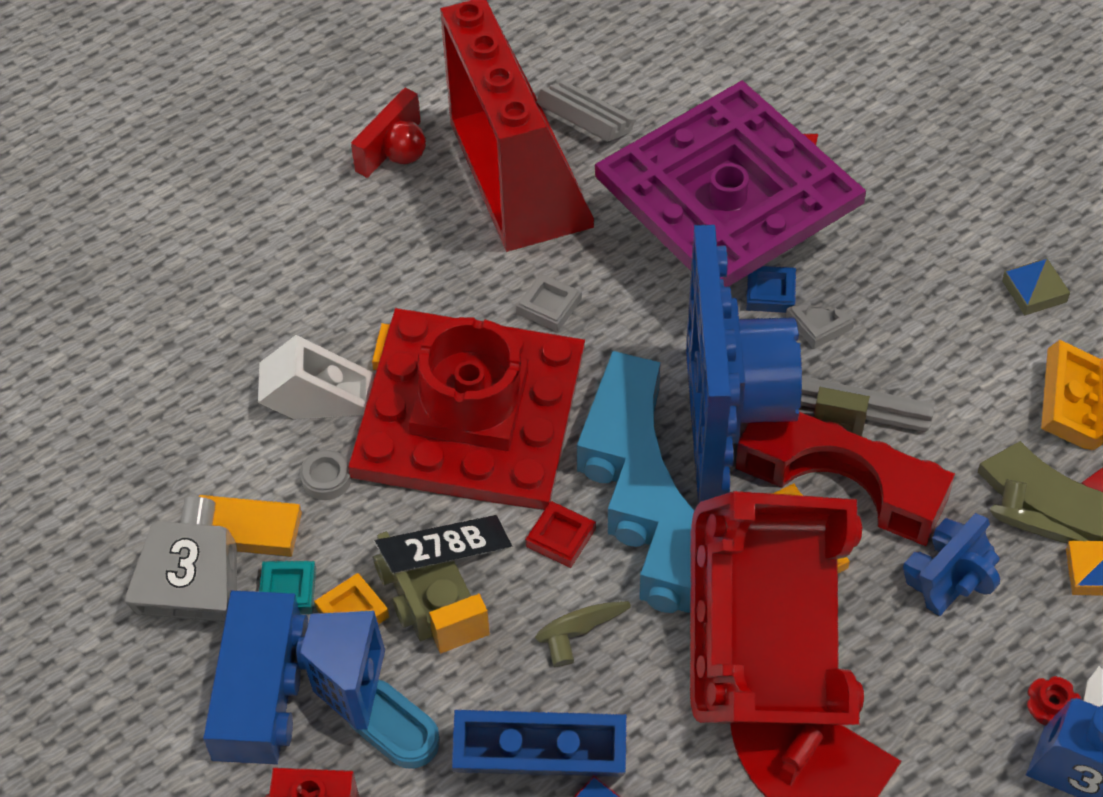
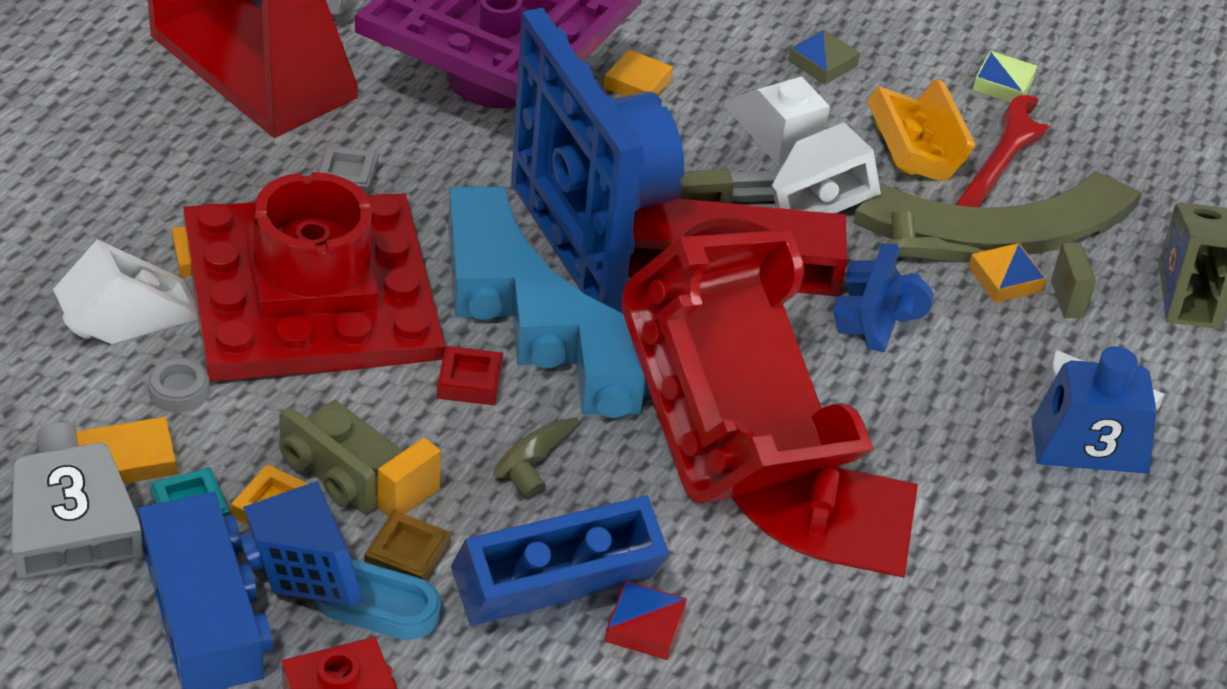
camera: 30 degrees left, 10 degrees down
(391, 135) = (94, 52): red tile -> none
(436, 684) = (408, 546): none -> pearl gold tile
(443, 543) = (353, 409): black sticker -> none
(848, 267) = (637, 74): none -> light orange tile
(956, 348) = (780, 115): none -> white slope
(960, 422) = (827, 172): none -> white slope
(1042, 690) = (1026, 390): red plate -> none

